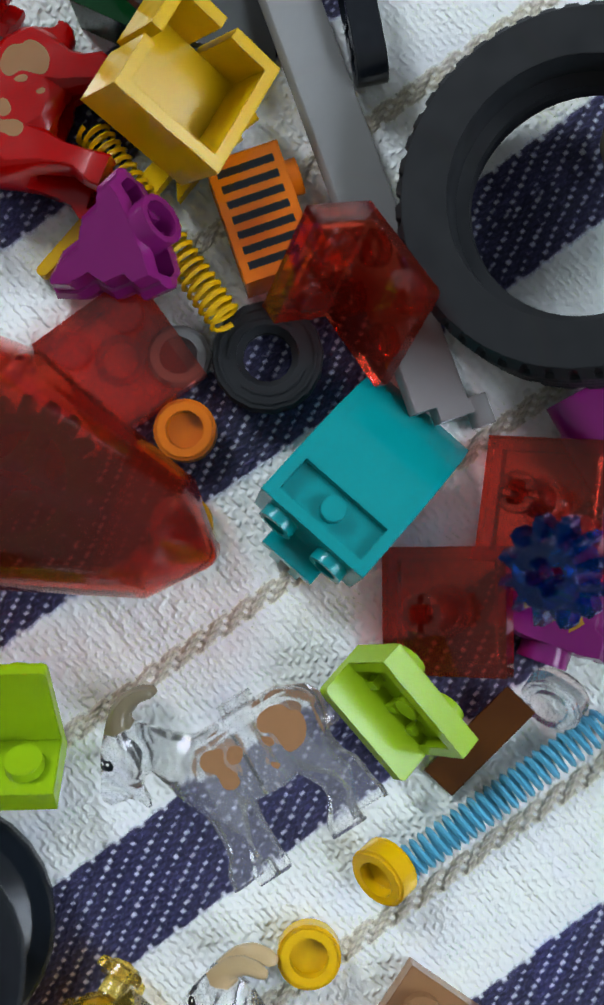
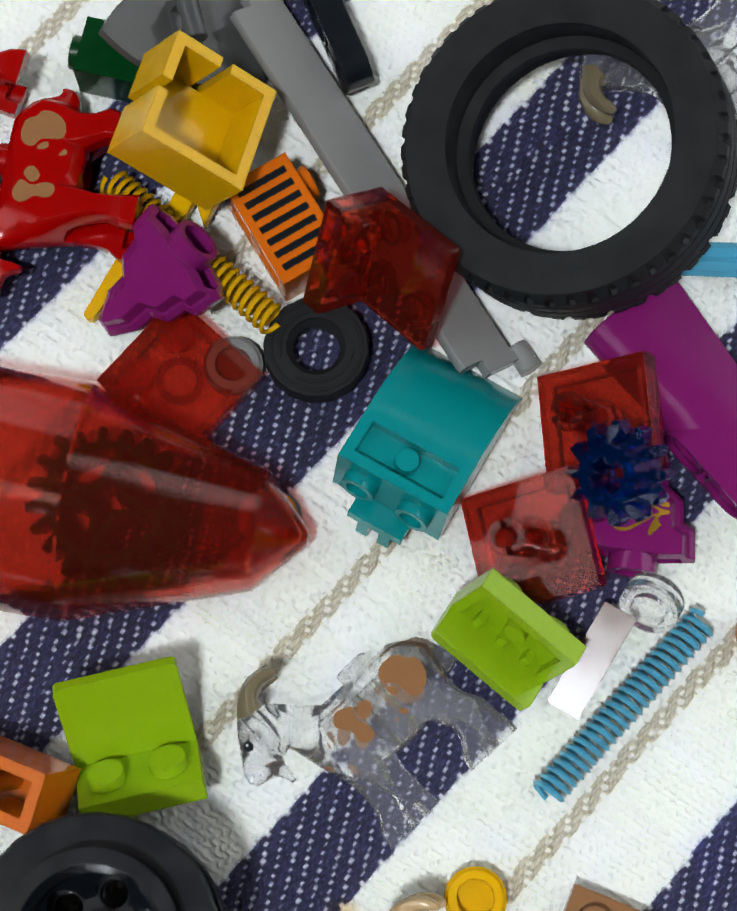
camera: 10 degrees left, 10 degrees down
(185, 430) = (254, 431): orange tile -> none
(384, 871) = (529, 798): yellow tile -> none

